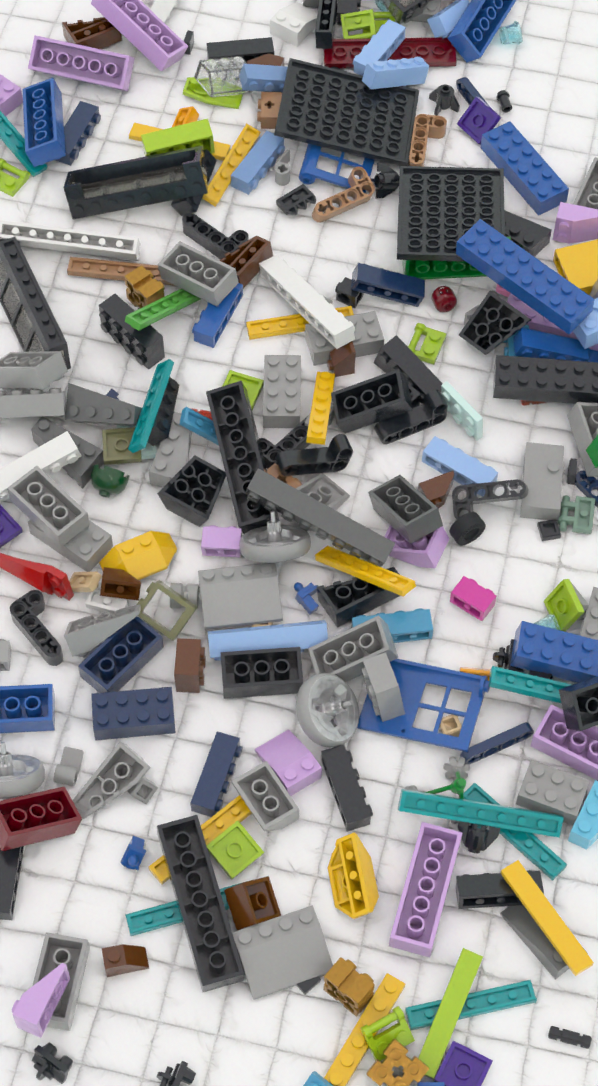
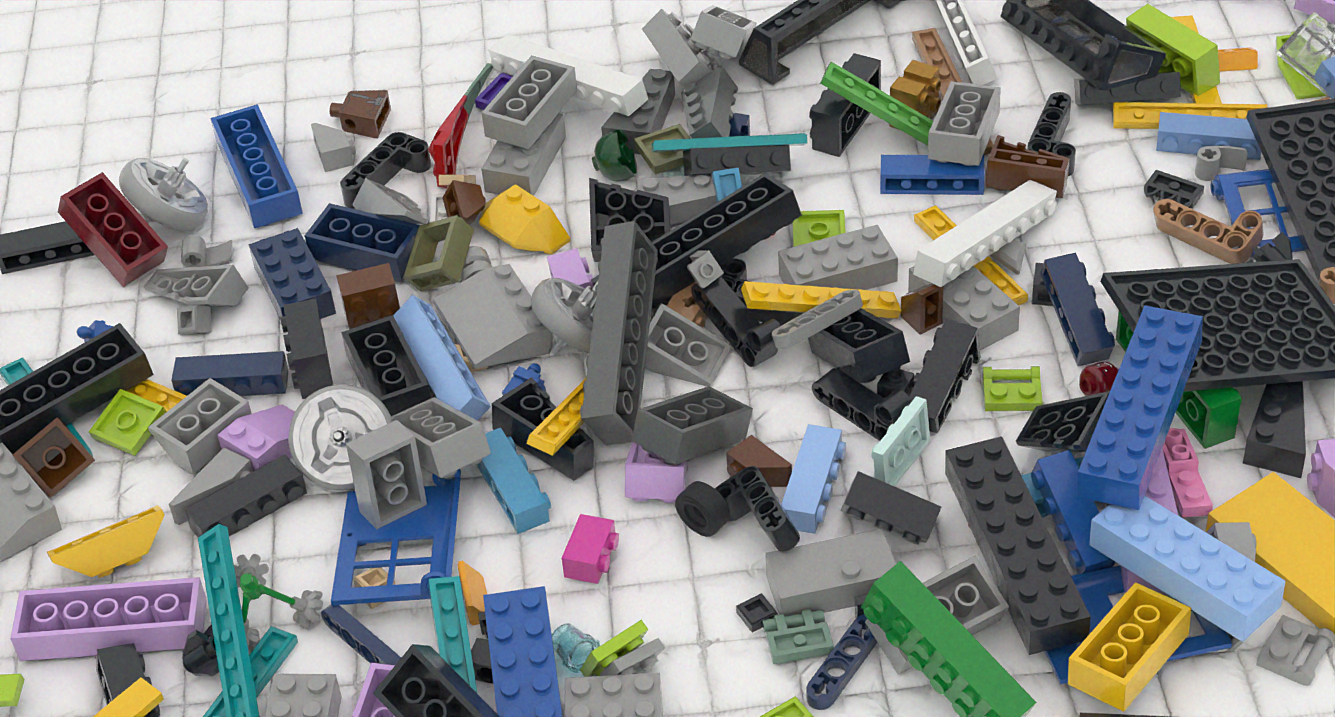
camera: 75 degrees right, 15 degrees down
(222, 714) = (307, 347): none -> black brick
(277, 454) = (704, 268): none -> light grey bracket
(318, 799) = (217, 474): none -> light grey slope
(345, 413) = (817, 319): none -> light grey beam
(507, 435) = (890, 508): none -> black wedge

